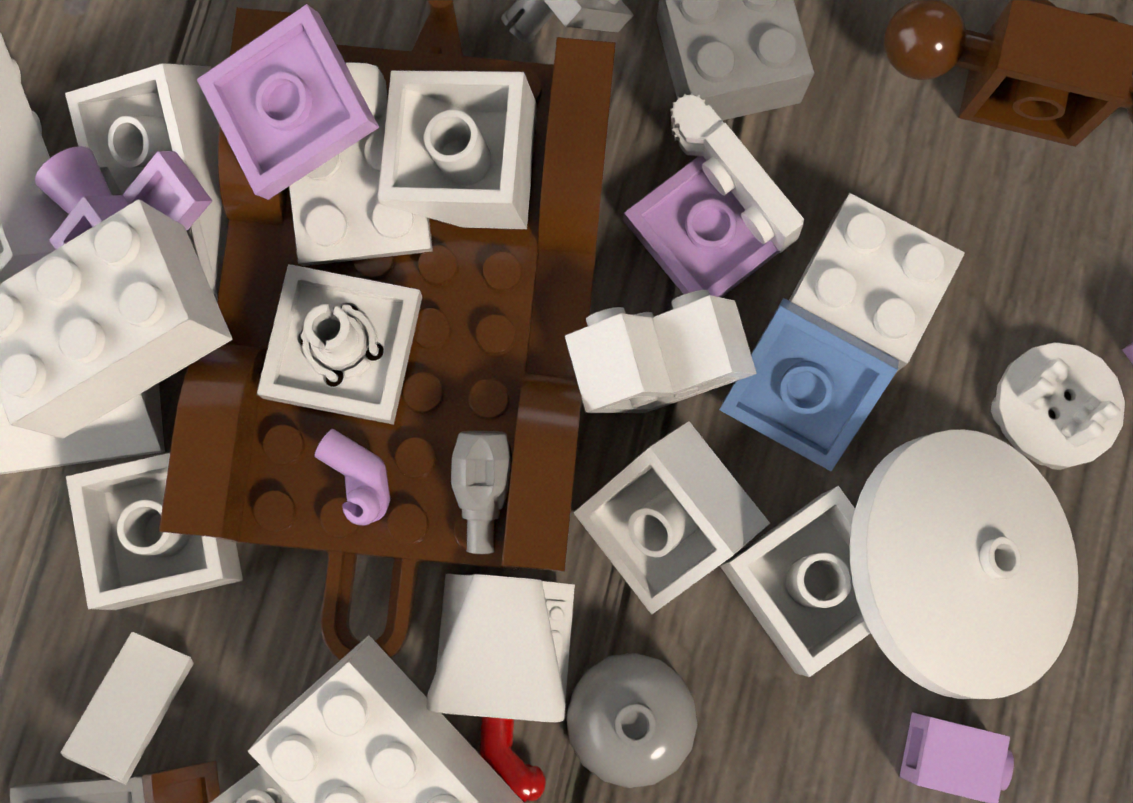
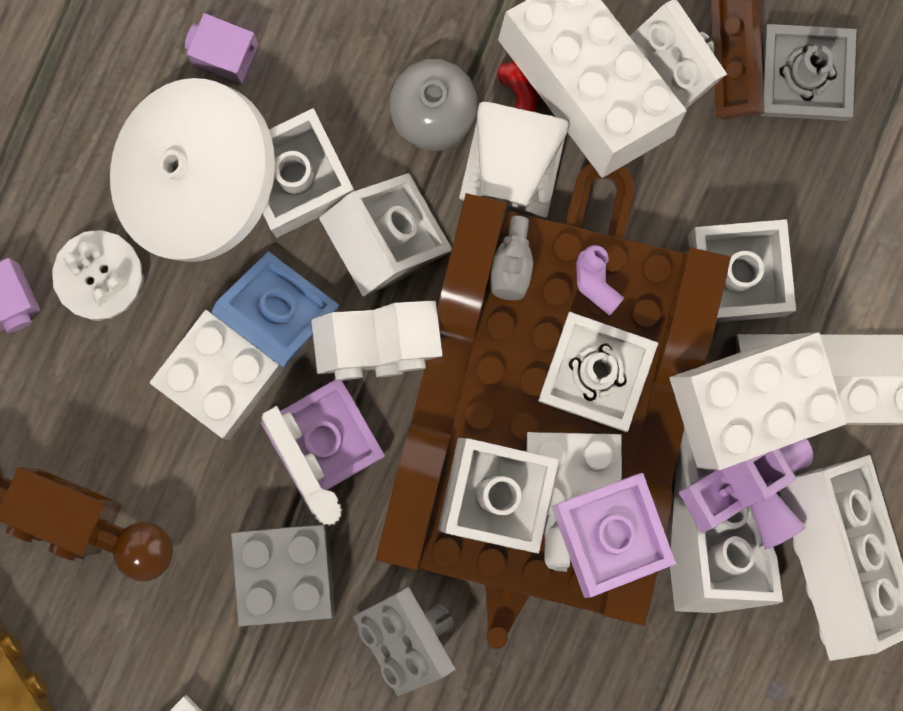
camera: 170 degrees left, 5 degrees up
(127, 708) = (770, 159): white tile -> none

